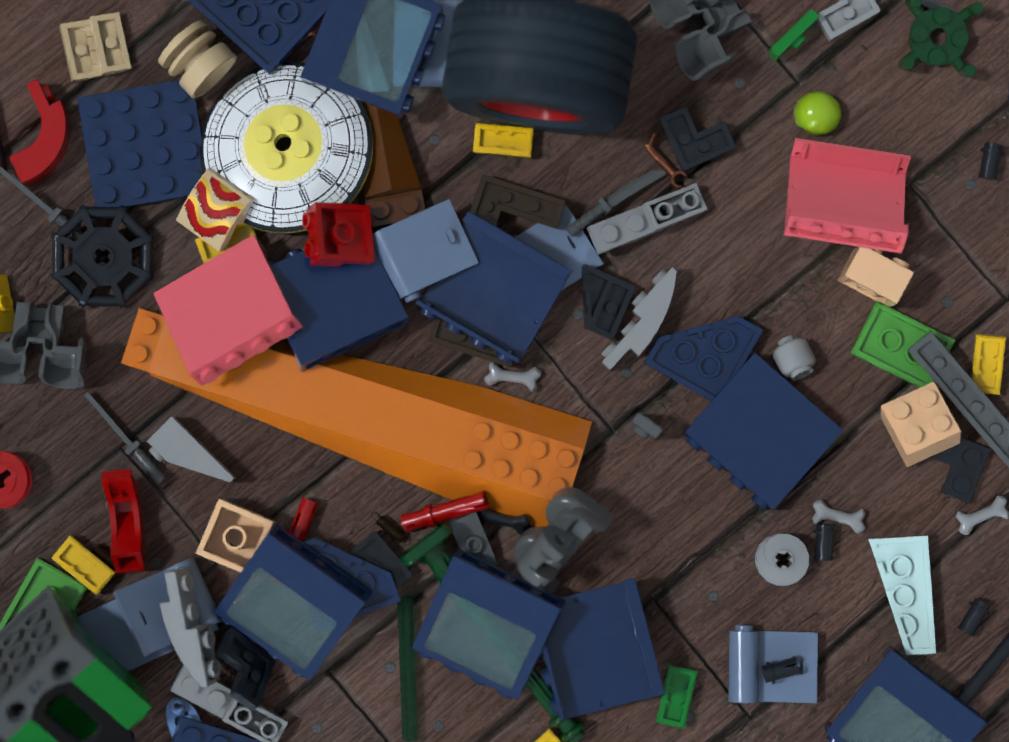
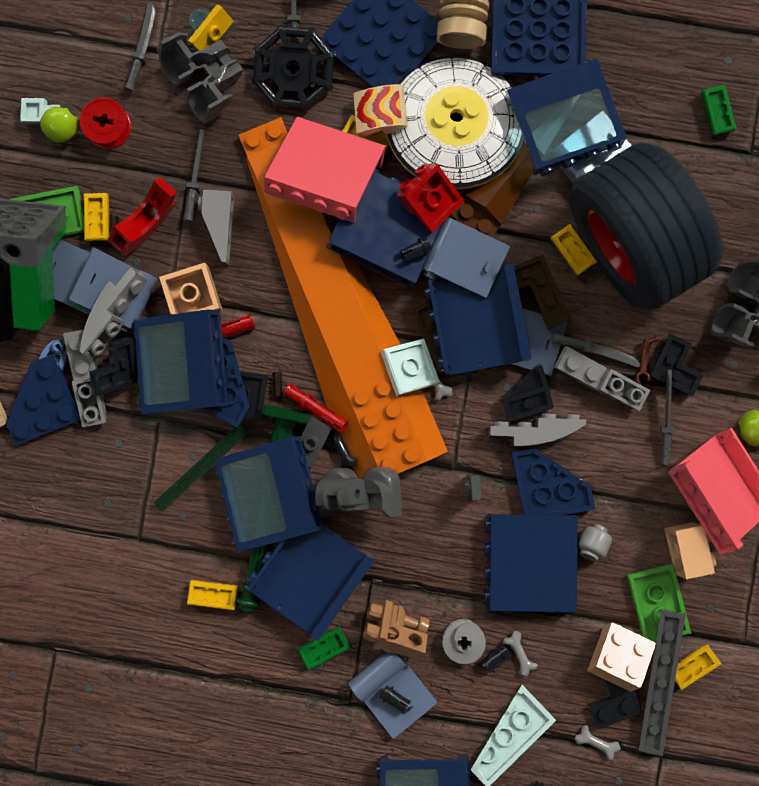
camera: 50 degrees right, 0 degrees up
(378, 291) = (415, 250): none -> black pin
(482, 389) = (410, 367): none -> light aqua plate
(718, 613) = (393, 631): none -> medium nougat hips
(746, 198) = (666, 429): none -> dark grey sword

